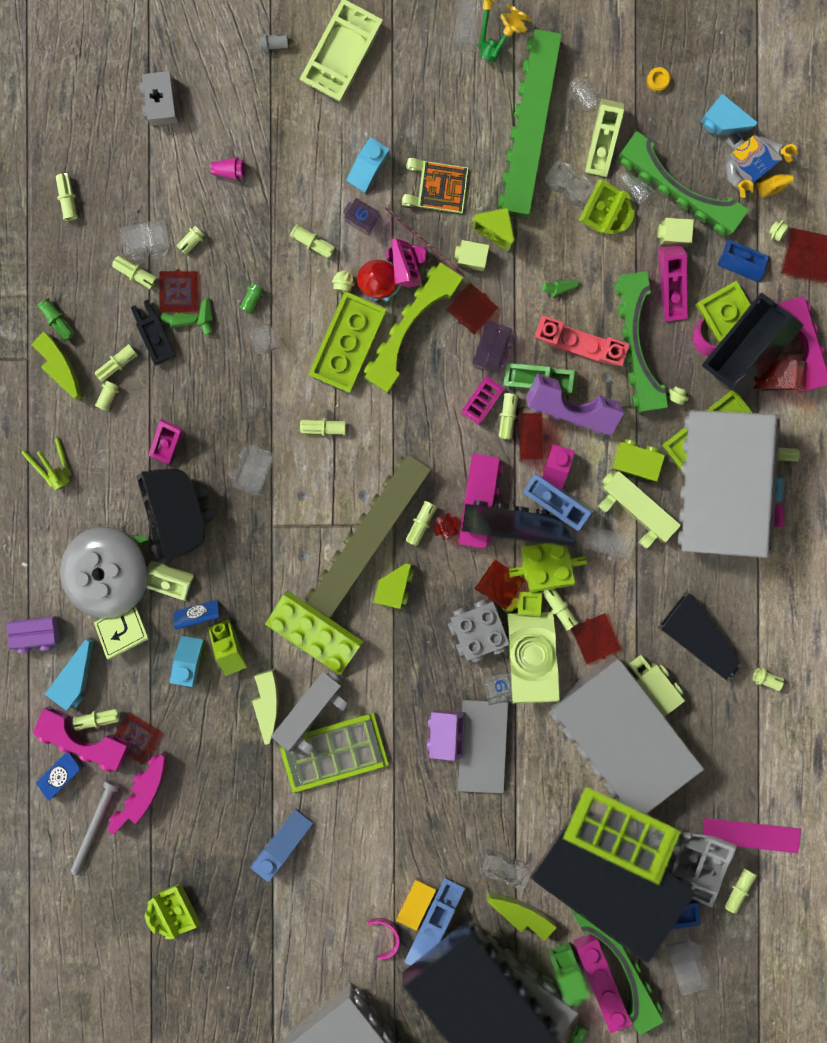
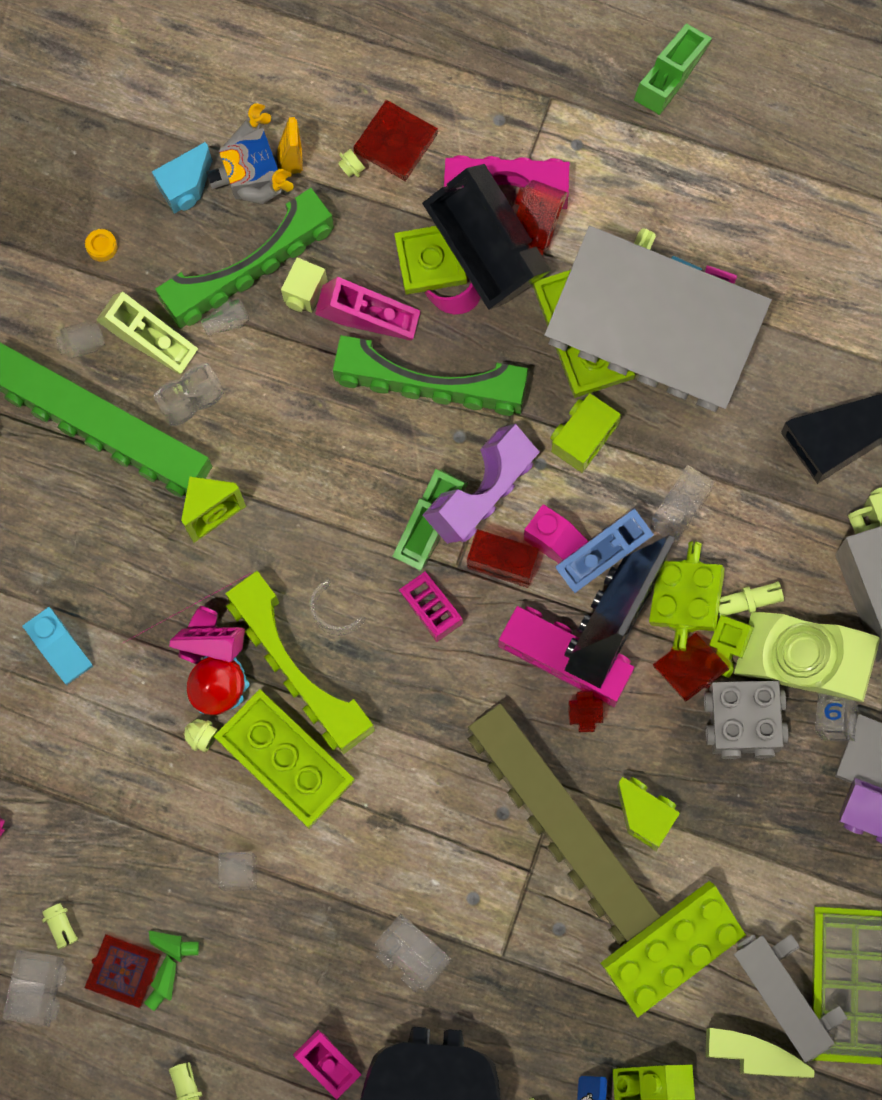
camera: 65 degrees left, 15 degrees down
(134, 272) = (71, 1023): yellowish green axle -> none
(153, 335) = (170, 1027): black hinge -> none
(252, 298) = (173, 869): bright green pin -> none
(312, 241) = (128, 757): yellowish green axle -> none
(322, 427) = (388, 834): yellowish green axle -> none
(361, 216) = (121, 679): clear purple brick -> none
(421, 523) = (569, 745): yellowish green axle -> none
(440, 186) = (125, 563): flag -> none
(471, 255) = (232, 551): yellowish green brick -> none
(472, 308) = (302, 575): clear red piece -> none
(493, 347) = (365, 566): clear purple brick -> none
(508, 416) = (464, 578): yellowish green axle -> none
(559, 287) = (318, 455): bright green bar -> none
(581, 343) = (404, 451): coral slope -> none
(595, 638) = (807, 568): clear red piece -> none
(607, 209) = (241, 359): lime slope -> none
(639, 506) = (646, 450): yellowish green brick -> none
(677, 395) = (516, 353): yellowish green plate -> none
(743, 260) = (372, 219): blue slope -> none

